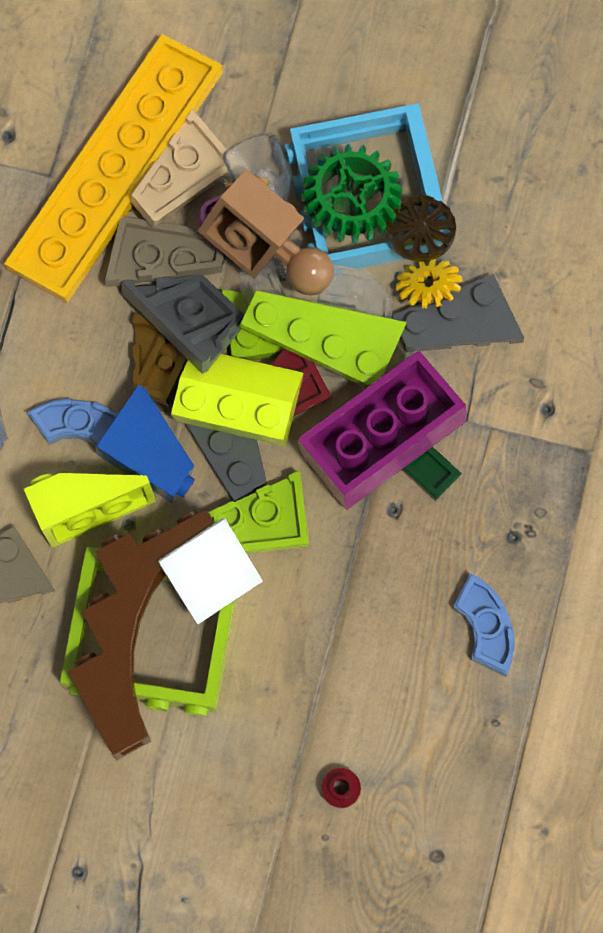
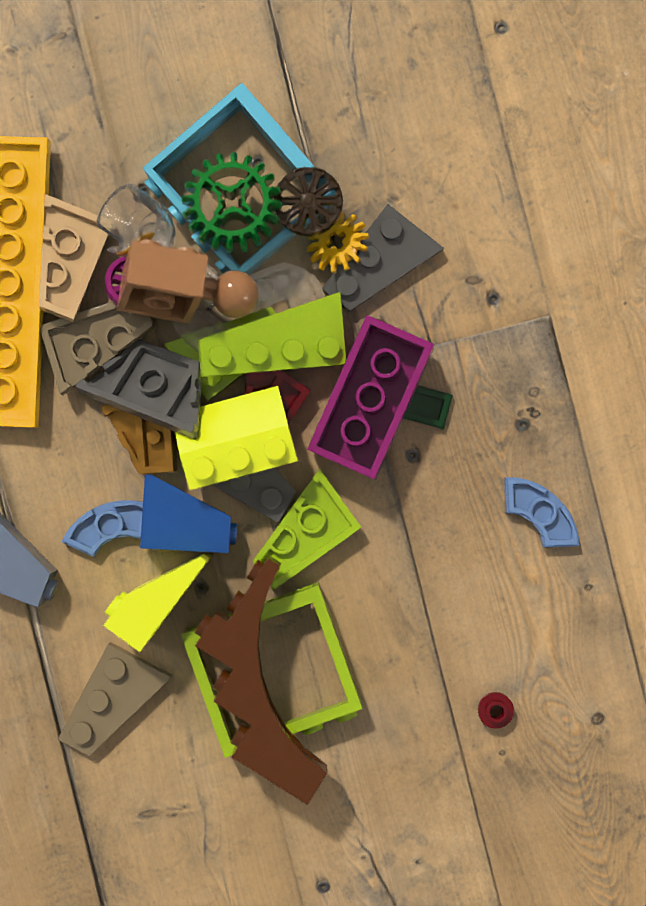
camera: 35 degrees left, 15 degrees up
(210, 570) = (298, 605): white piece -> none

